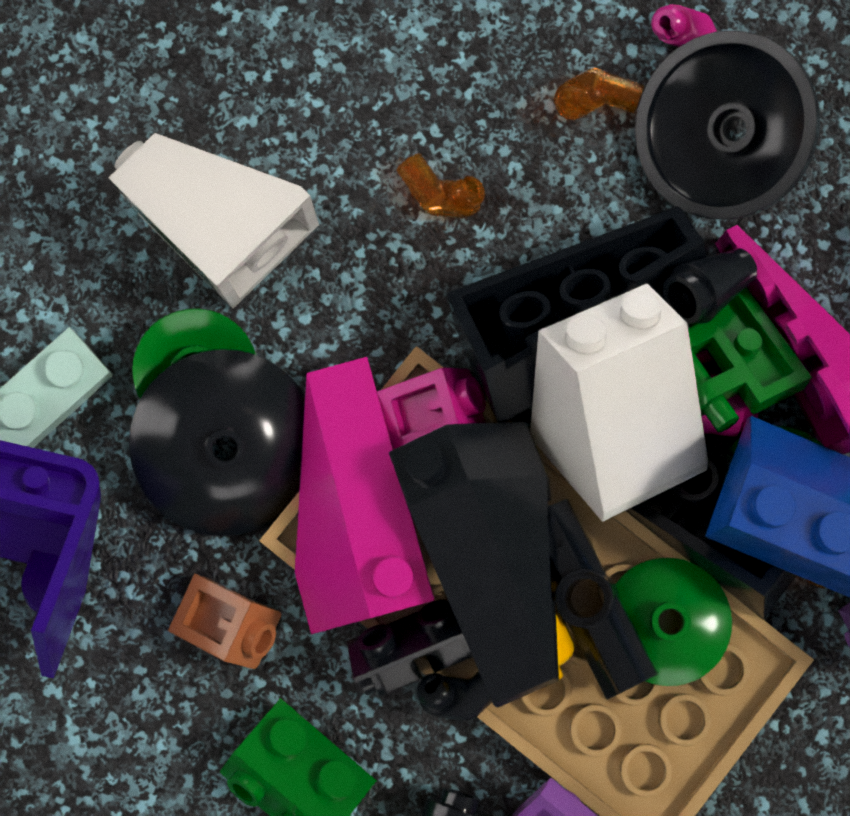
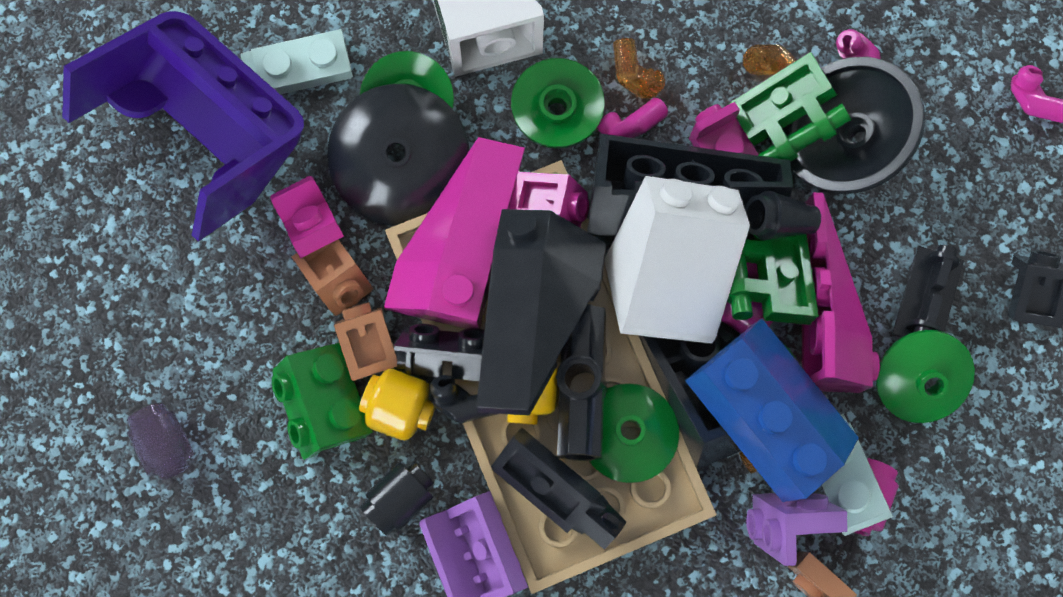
camera: 25 degrees right, 5 degrees down
(160, 576) = (306, 216): none -> dark pink bracket
(310, 681) = (365, 341): none -> nougat bracket
(369, 249) = (563, 83): none -> green dish
(388, 735) = (397, 404): none -> yellow head
(476, 255) = (636, 123): none -> dark pink arm
(582, 213) = (720, 130): none -> dark pink bracket
(626, 735) = (557, 489): none -> black hinge
(631, 136) = (784, 99): none -> plate

